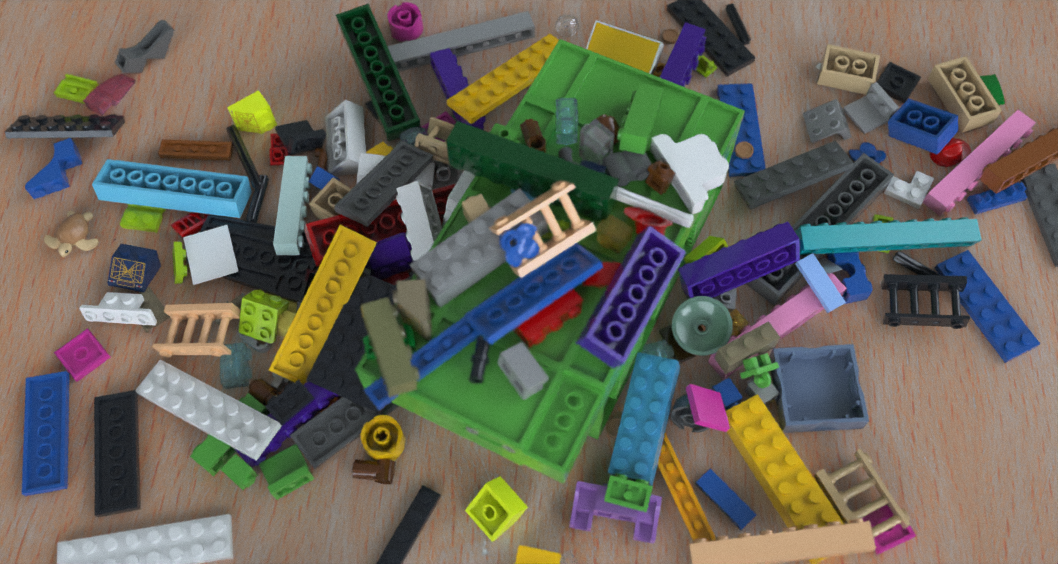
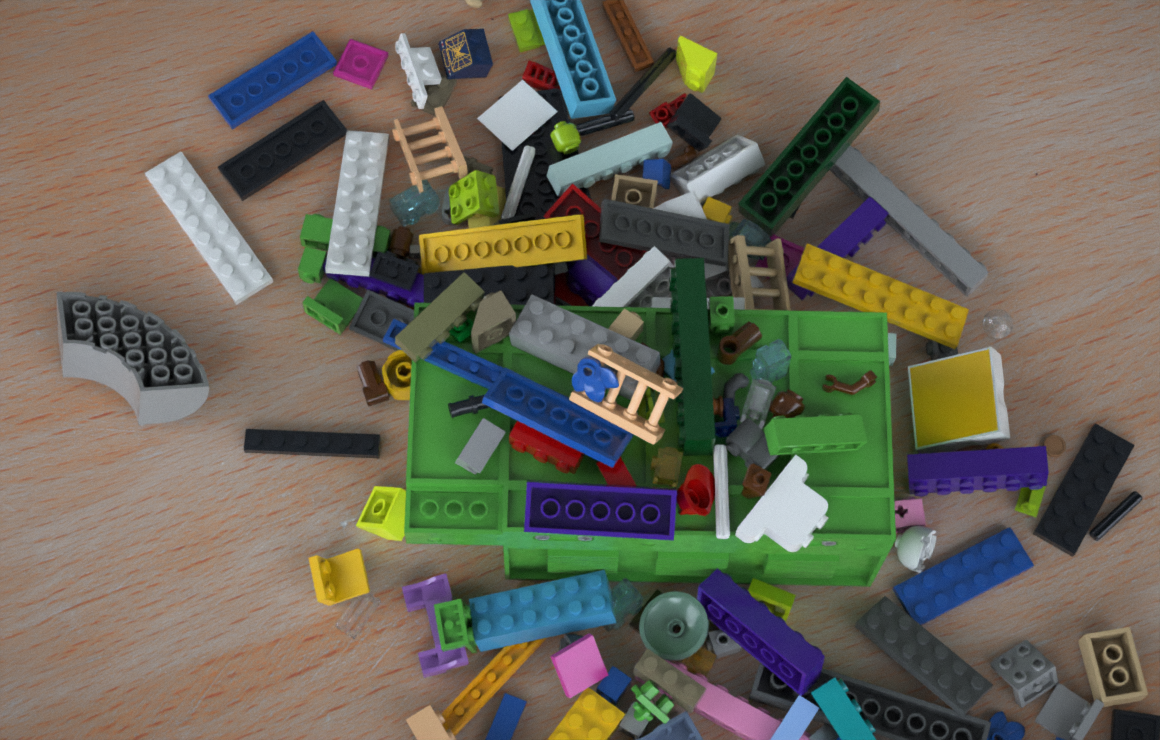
camera: 60 degrees right, 5 degrees up
(179, 269) = (488, 96): lime plate -> none
(254, 225) = (565, 137): none -> lime head
(270, 278) = (518, 182): none -> white axle
(405, 22) = (900, 151): dark pink brick -> none
(609, 74) = (866, 380): none -> reddish brown arm
(744, 150) = (929, 589): medium nougat piece -> none

